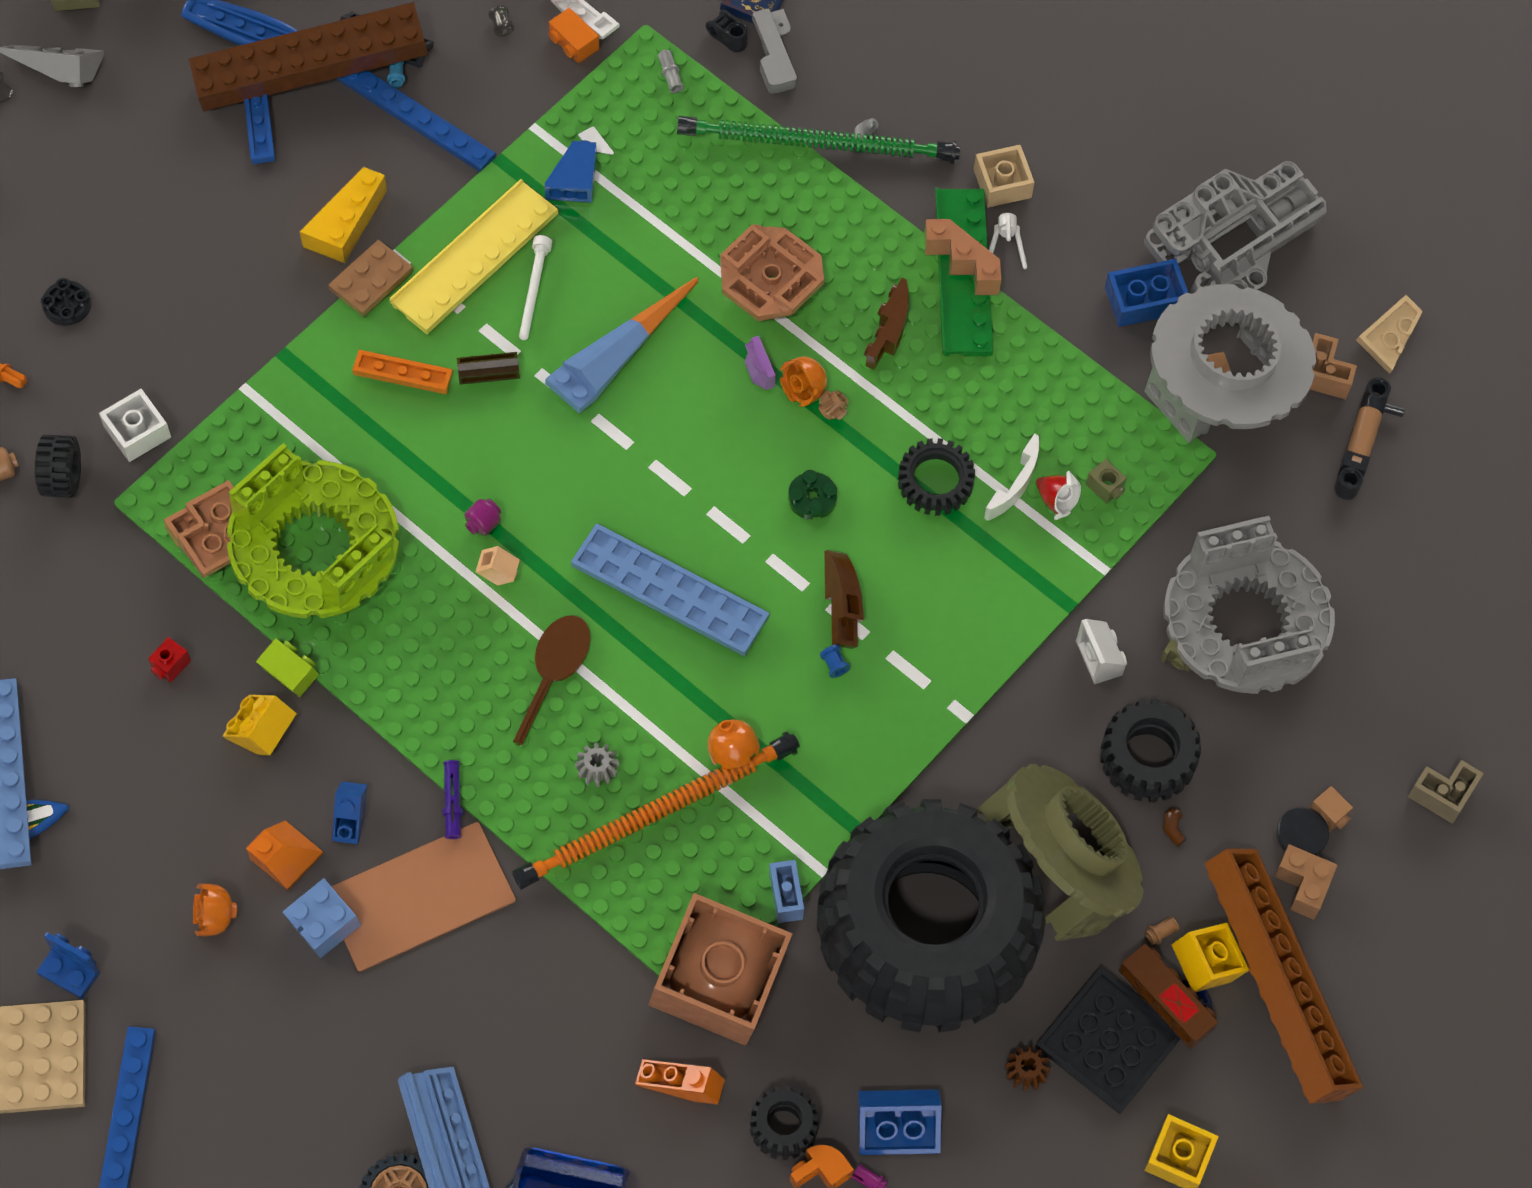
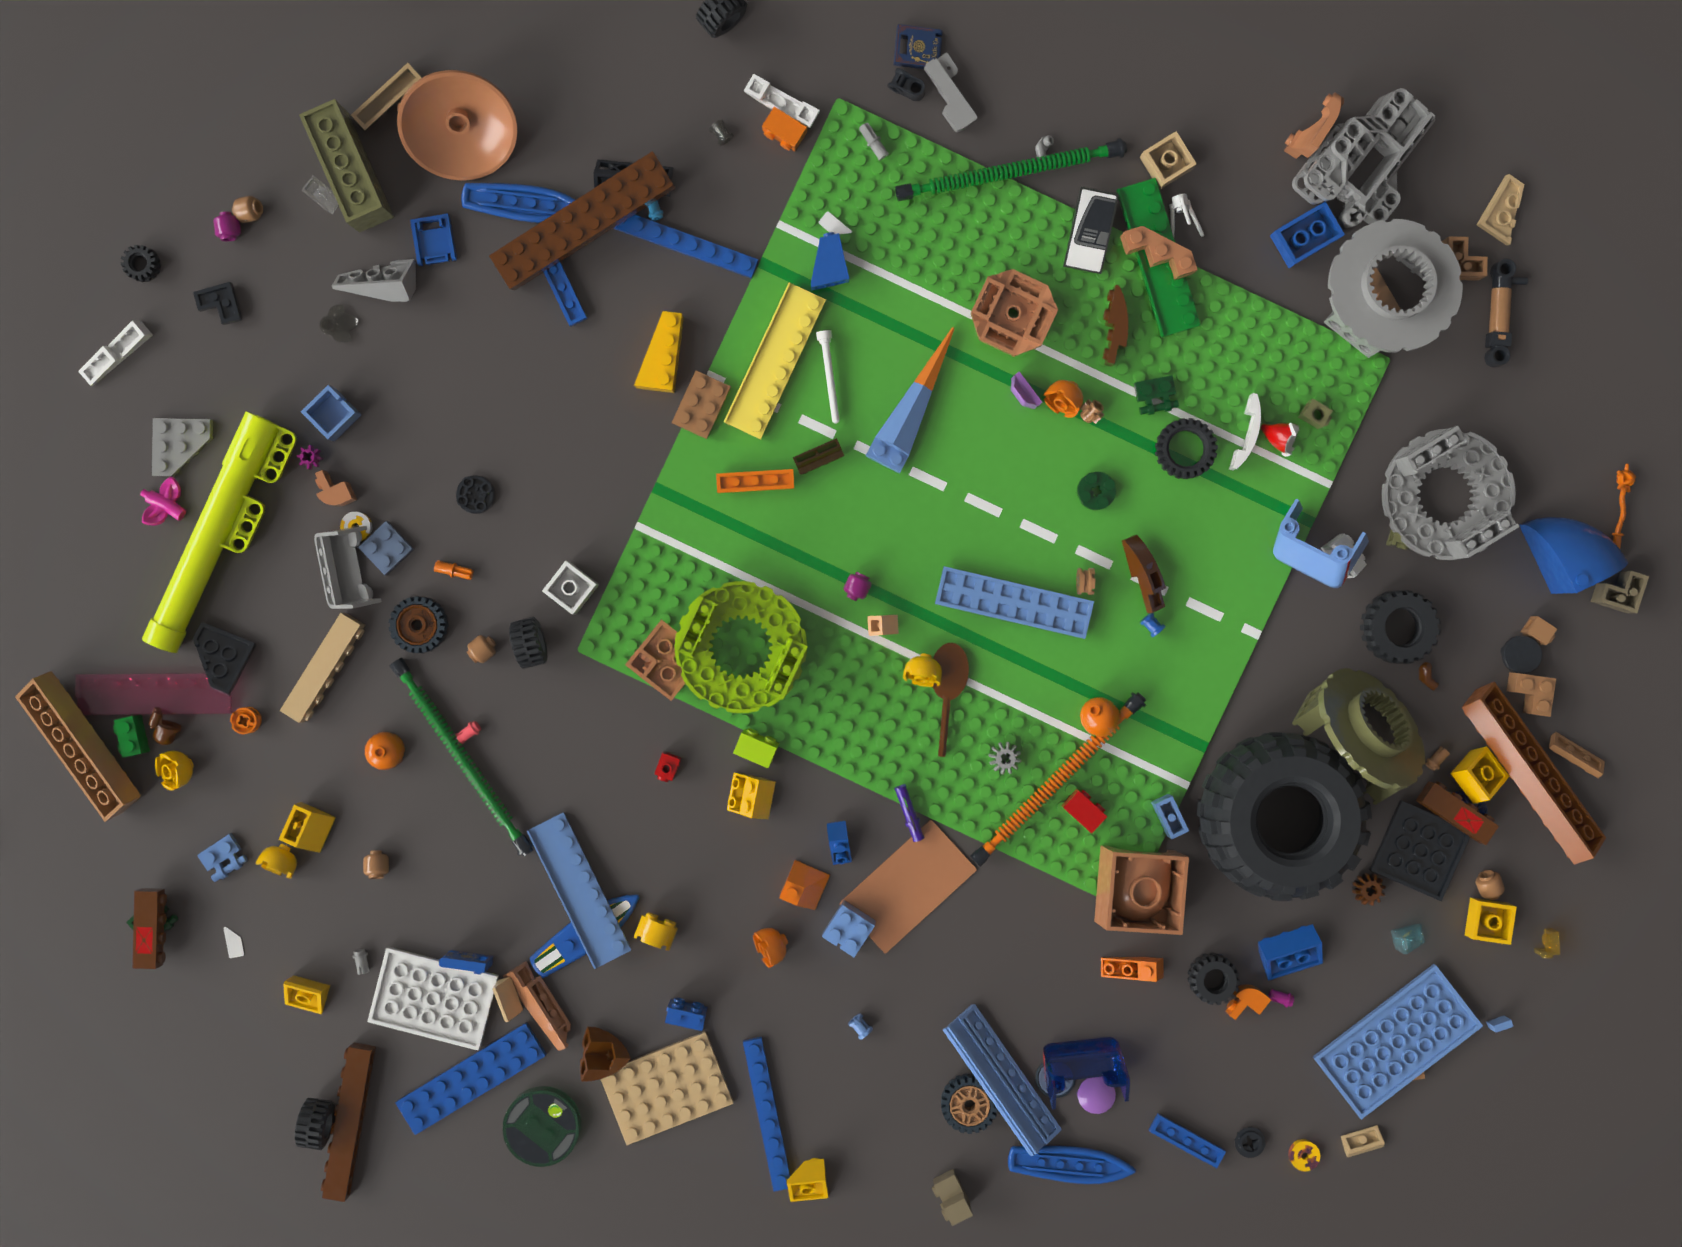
camera: 15 degrees left, 25 degrees up
(72, 847) = (656, 932): none -> yellow brick
(134, 45) = (433, 244): none -> blue container
(290, 1051) = (860, 1026): none -> medium blue bush
(524, 631) = (923, 671): none -> yellow cylinder
(678, 856) = (1084, 811): none -> red brick
(765, 586) = (1085, 581): none -> medium nougat wheel
(891, 220) = (1090, 230): none -> slope
(917, 405) = (1153, 389): none -> dark green plate
(1055, 632) = (1325, 568): none -> medium blue windscreen
(1065, 1149) = (1408, 938): none -> clear light blue slope
(1193, 1108) = (1490, 885): none -> medium nougat head
(1204, 166) = (1309, 140): none -> nougat slope
(1347, 976) = (1576, 755): none -> medium nougat plate
(1393, 726) = (1571, 553): none -> blue brick
(1481, 664) = (1625, 479): none -> orange piece

